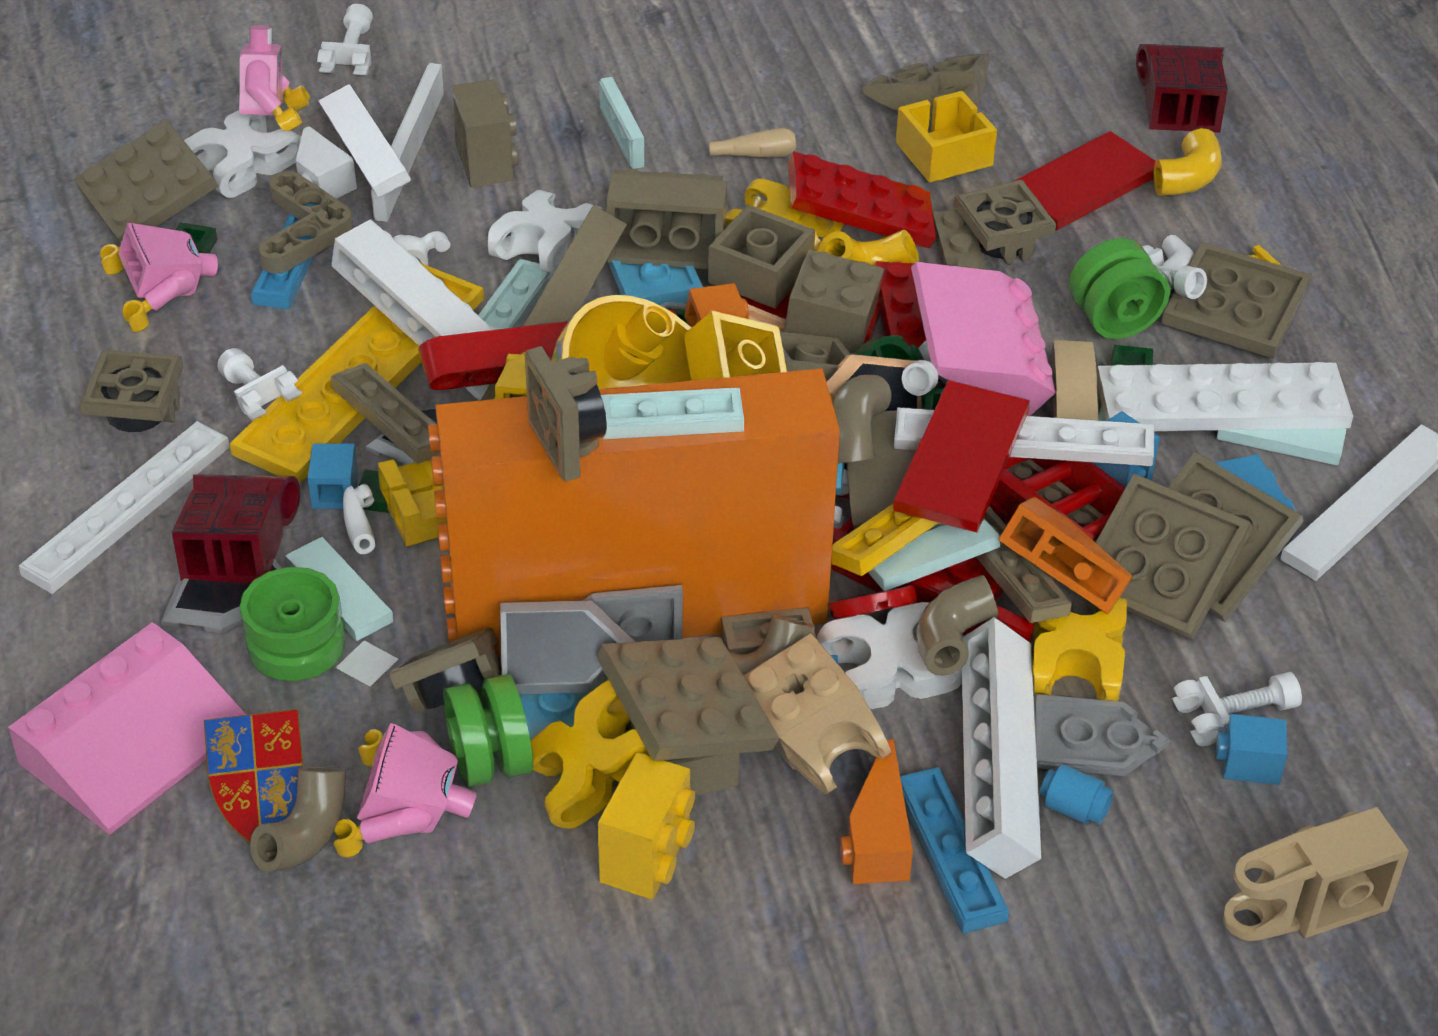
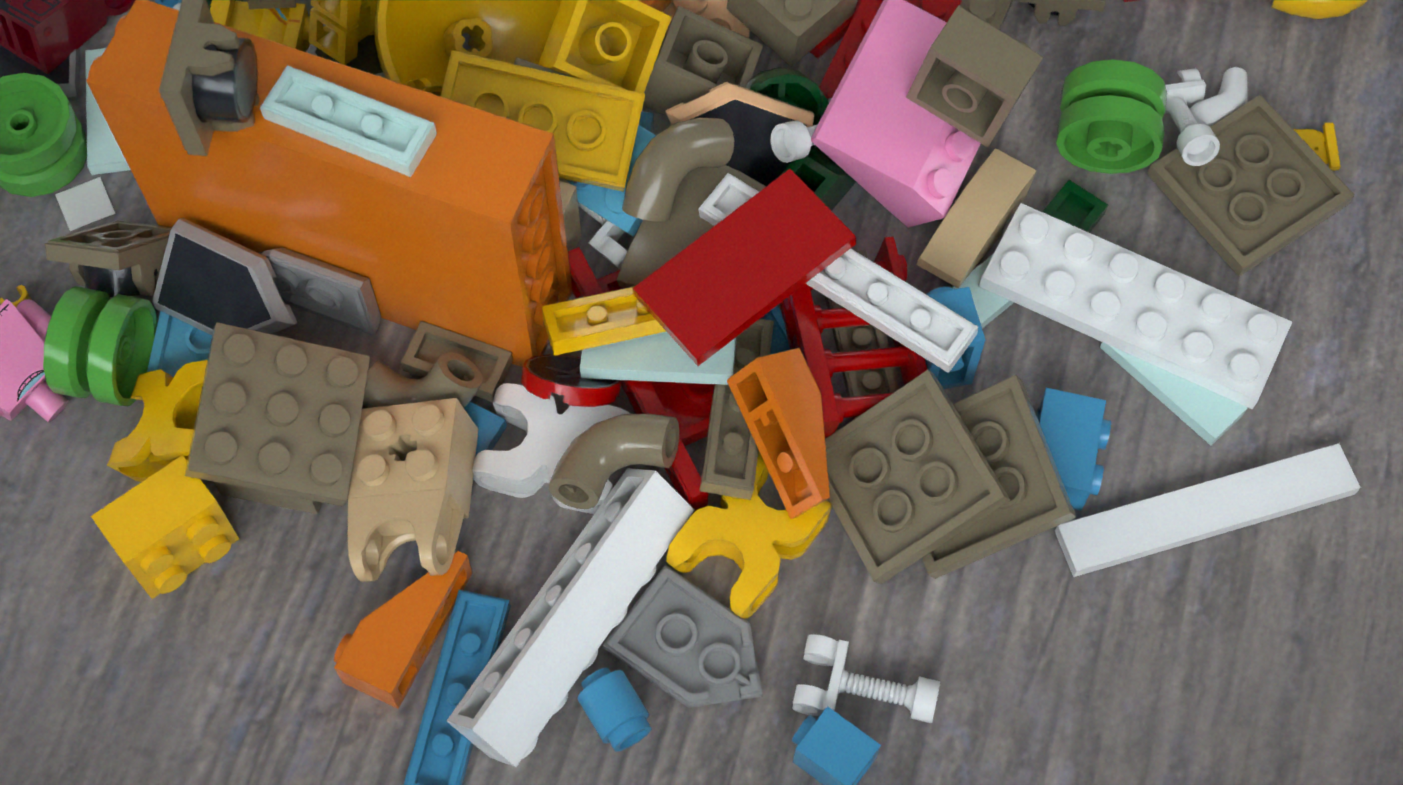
camera: 30 degrees right, 20 degrees up
(1026, 280) = (973, 75): none -> dark tan brick

